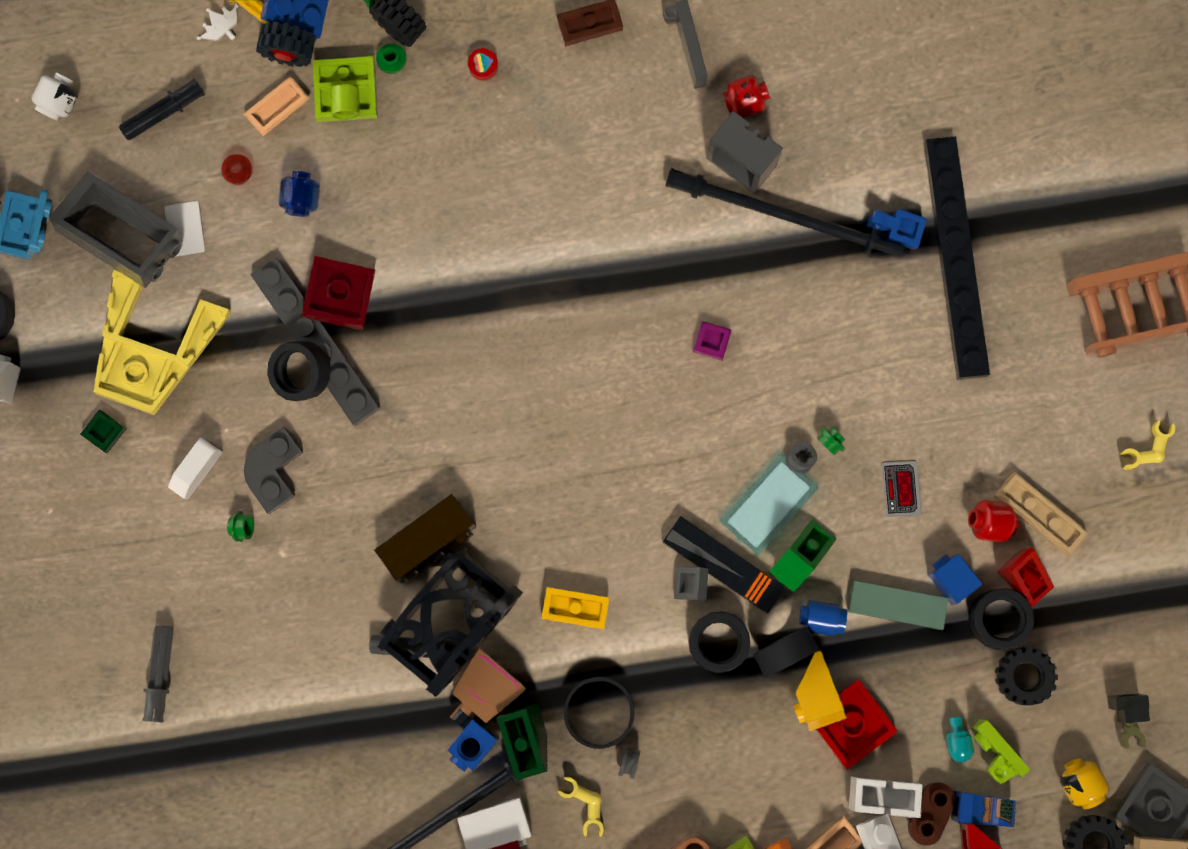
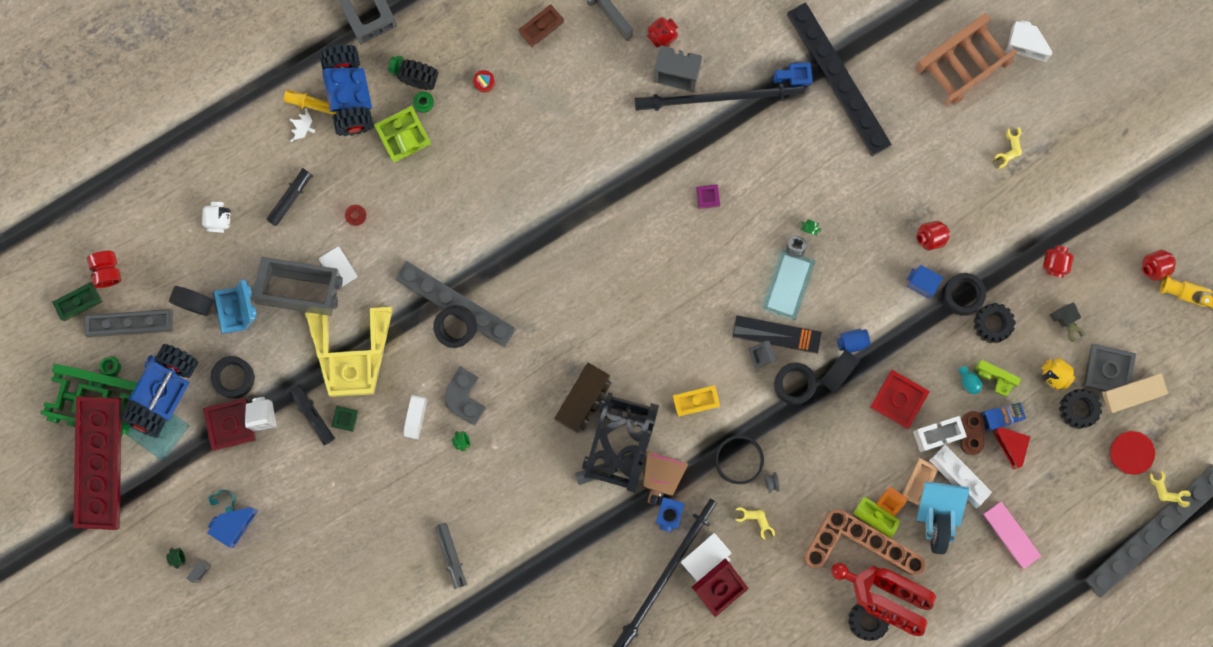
camera: 20 degrees left, 0 degrees up
(61, 407) = (307, 407): none -> black pin
(276, 106) = (362, 163): light nougat tile -> none
(299, 194) = (404, 214): clear blue head -> none
(338, 293) = (457, 266): dark red plate -> none
(525, 741) = (702, 496): dark green slope -> none
(803, 555) = (824, 307): green slope -> none
(817, 696) = (872, 390): yellow slope -> none
(898, 605) = (896, 313): sand green tile -> none
(901, 488) = (867, 239): sticker -> none
(1027, 575) = (968, 260): red slope -> none
(1041, 514) = (961, 218): tan tile -> none
(1150, 630) = (1058, 261): none -> red head

